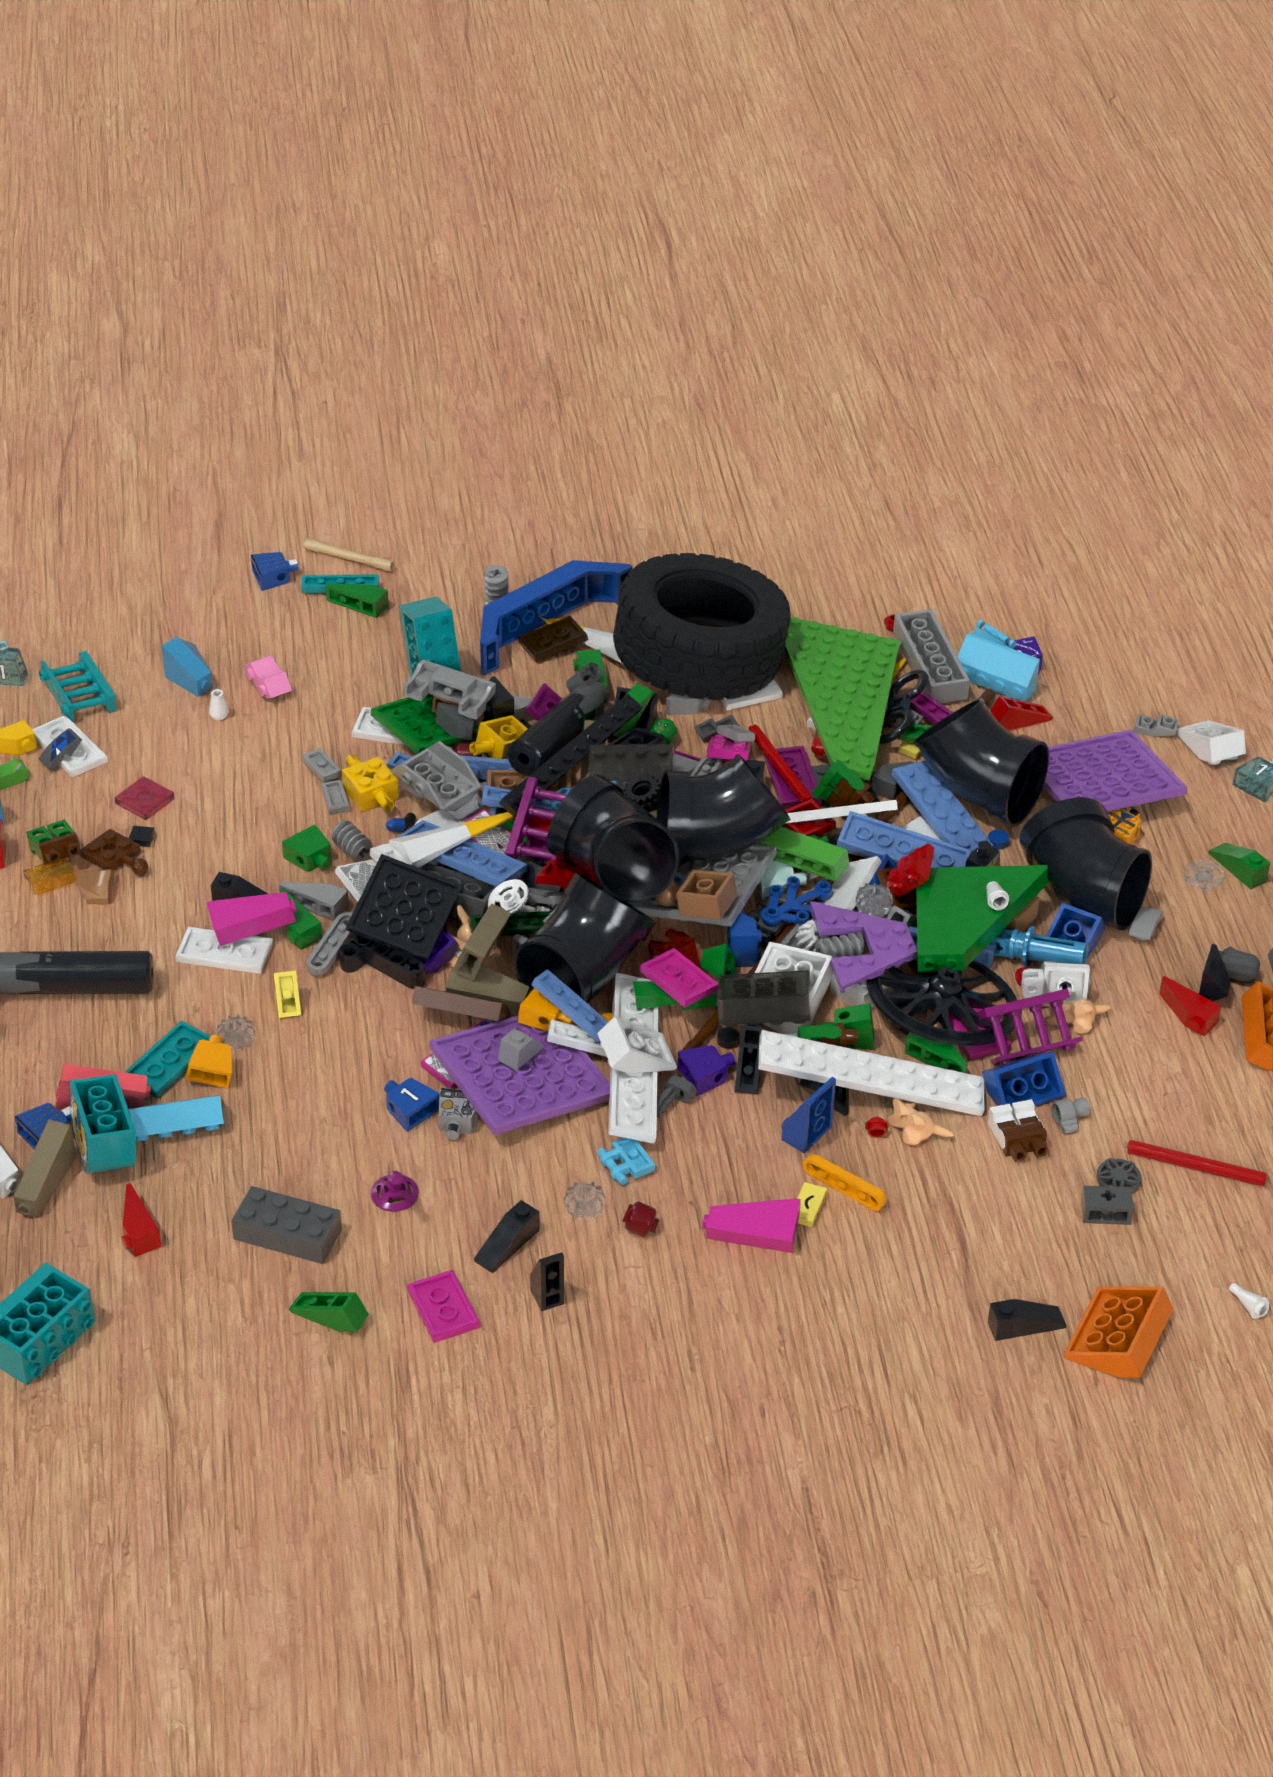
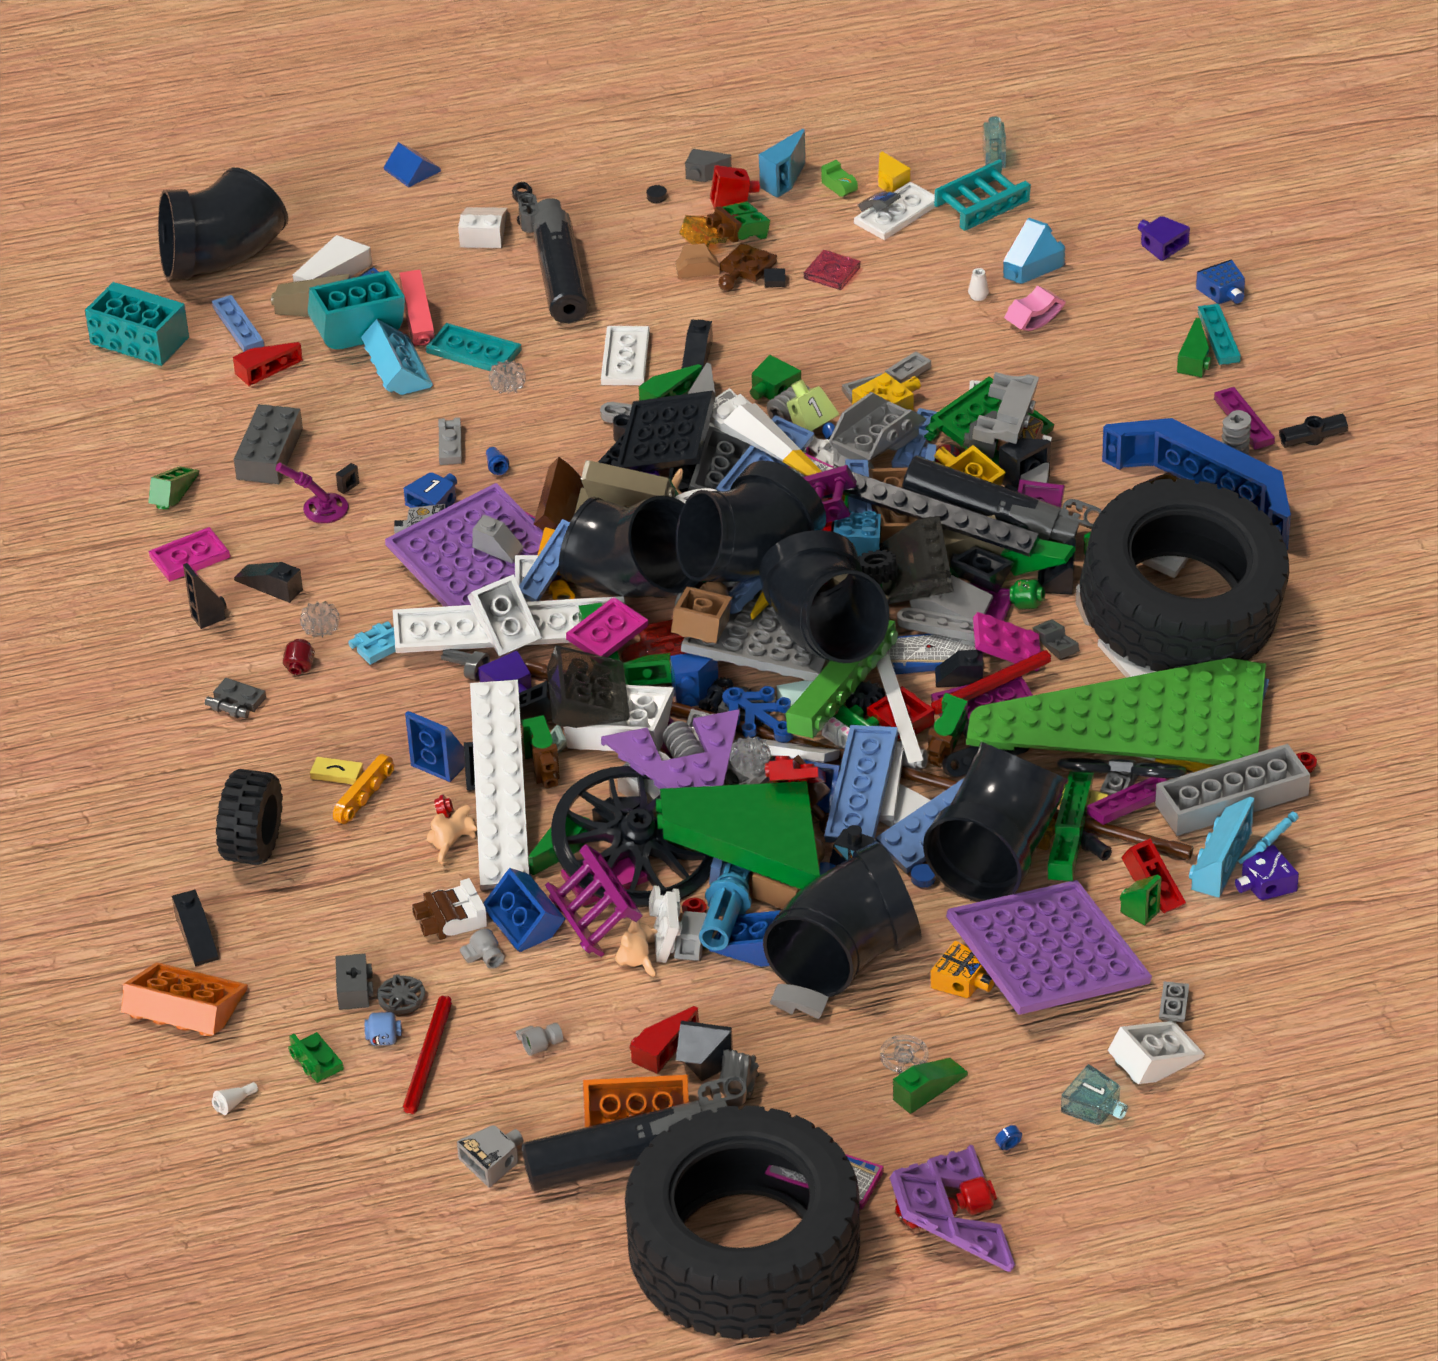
camera: 85 degrees right, 0 degrees up
(54, 1244) = (237, 323): none -> medium blue plate
(190, 592) = (1163, 236): none -> dark purple torso
(211, 1063) = (462, 366): light orange torso -> none
(250, 915) = (650, 348): dark pink slope -> none
(287, 994) = (560, 399): light yellow slope -> none
(319, 1087) = (450, 441): none -> light grey plate
(363, 1166) = (347, 478): none -> black plate
(368, 1052) = (496, 461): none -> blue cone
(369, 819) = (810, 407): none -> yellowish green torso
(377, 562) = (1270, 353): tan piece -> none
(429, 633) = (1082, 387): teal brick -> none
(454, 587) = (1231, 400): none -> magenta plate
(490, 549) = (1313, 430): none -> black piece
(682, 1272) = (236, 698): none -> dark grey plate
(735, 733) = (1032, 642): light grey tile -> none
(755, 1223) = (295, 732): dark pink slope -> none
(858, 1018) = (575, 768): green torso -> none
(920, 1227) = (249, 816): none -> black tyre
(996, 896) = (751, 831): white cone -> none
(1050, 718) = (1142, 899): none -> green slope
(1167, 1188) = (382, 1028): none -> medium blue head
(1183, 1088) = (537, 1039): none -> light grey piece
(1197, 1240) = (315, 1056): none -> green bracket

